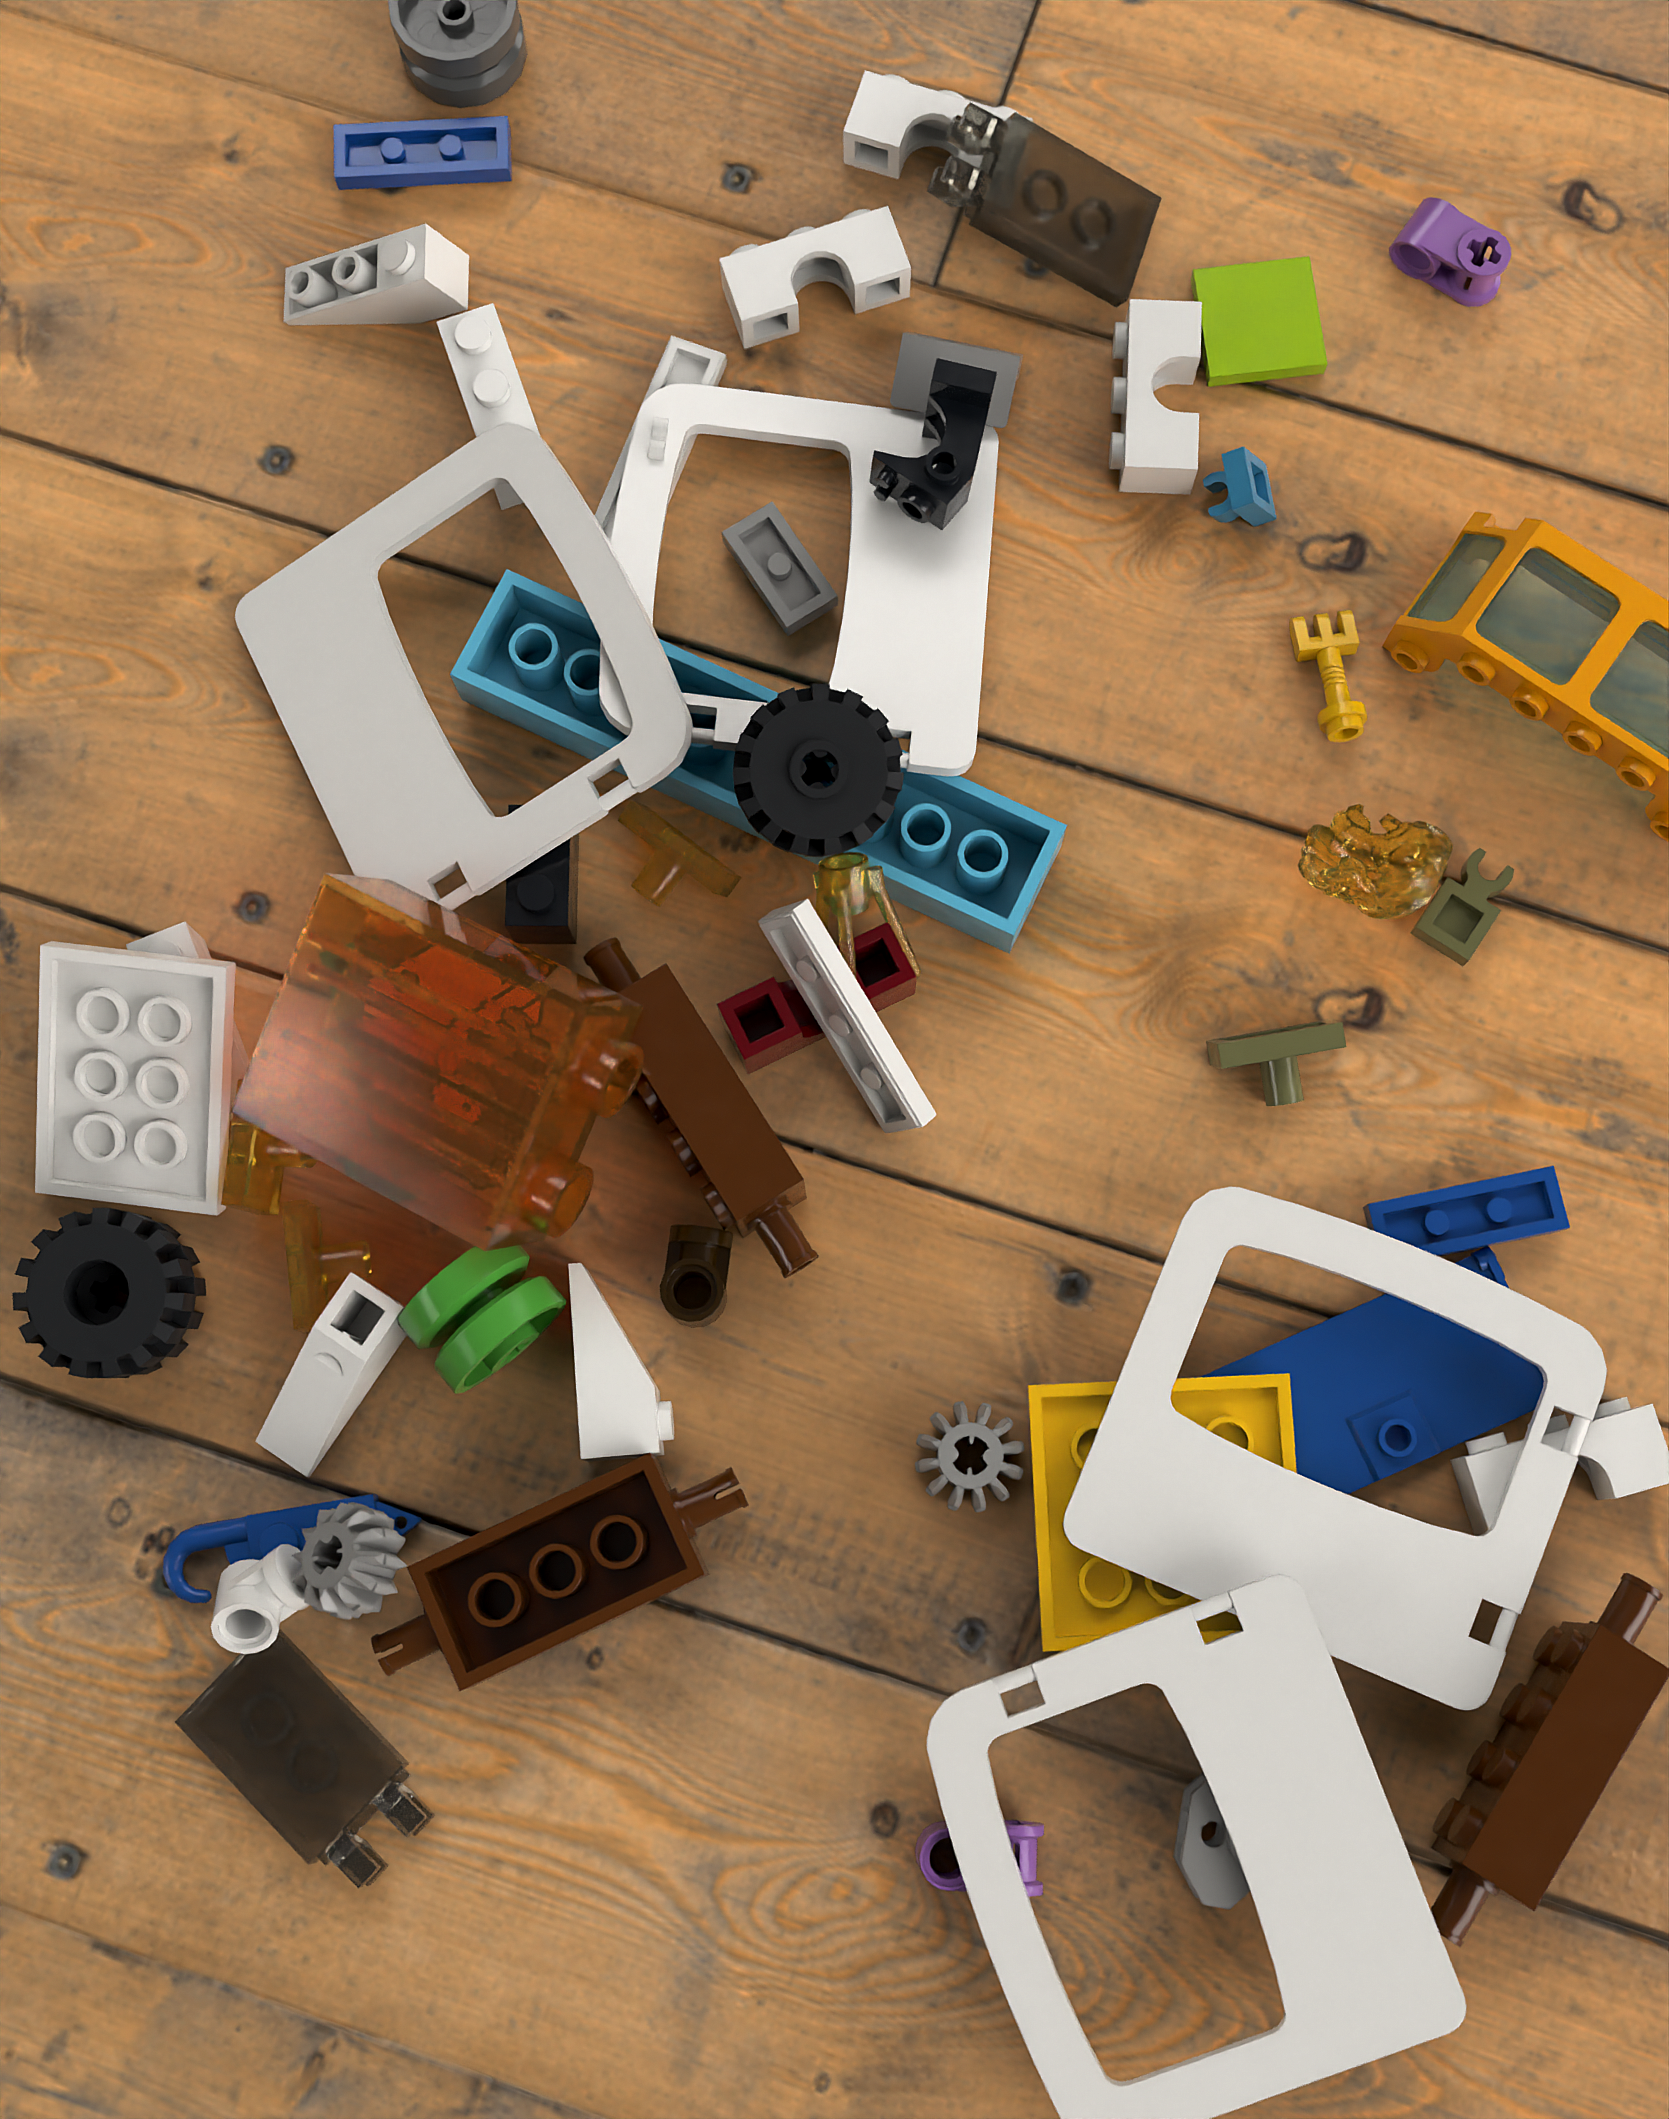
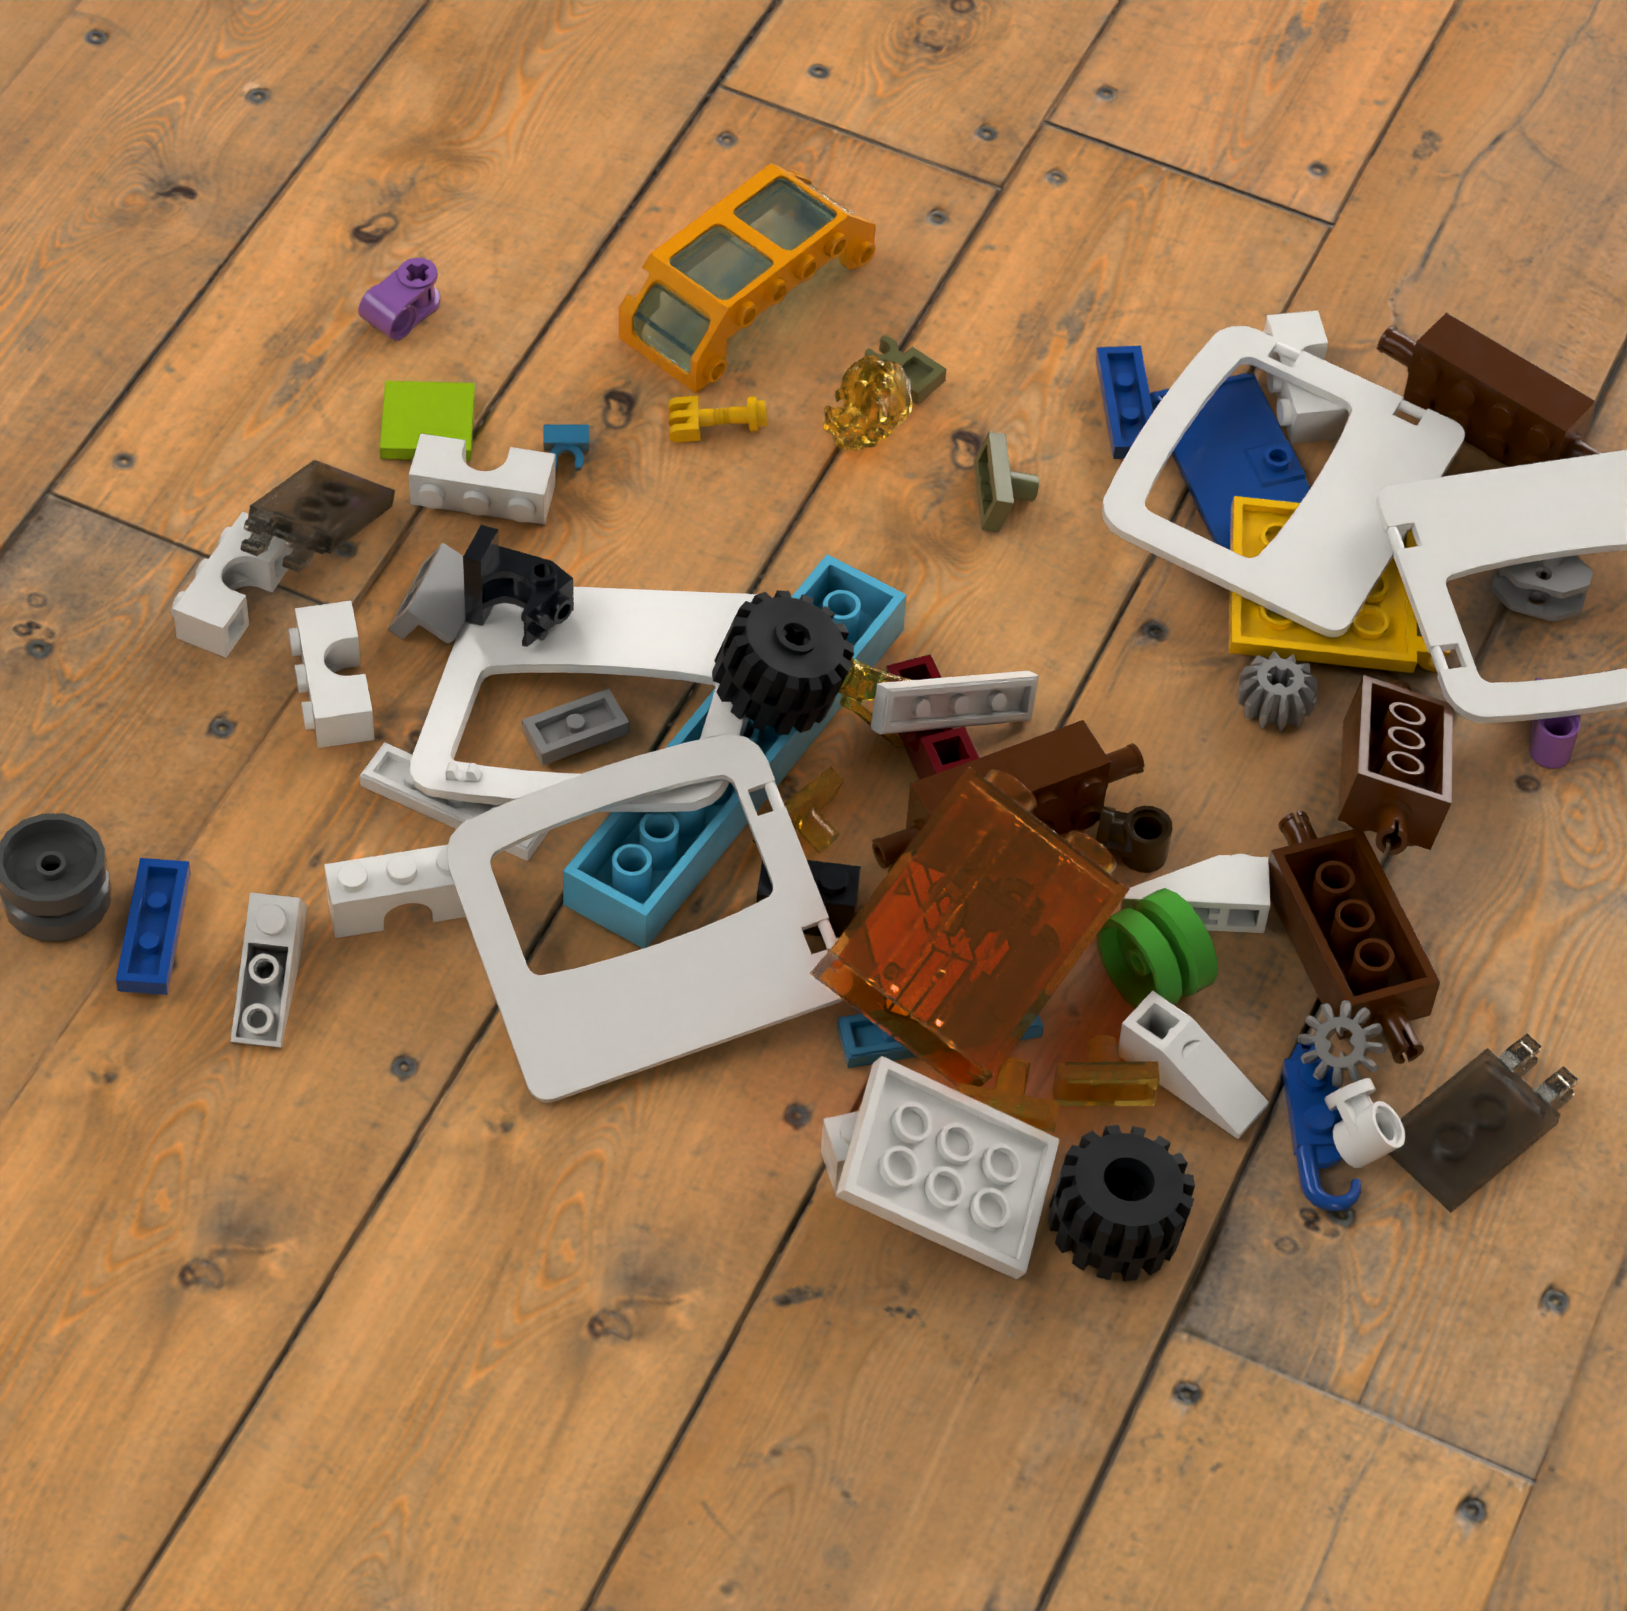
camera: 90 degrees left, 25 degrees down
(817, 1620) = (1396, 764): none -> reddish brown brick

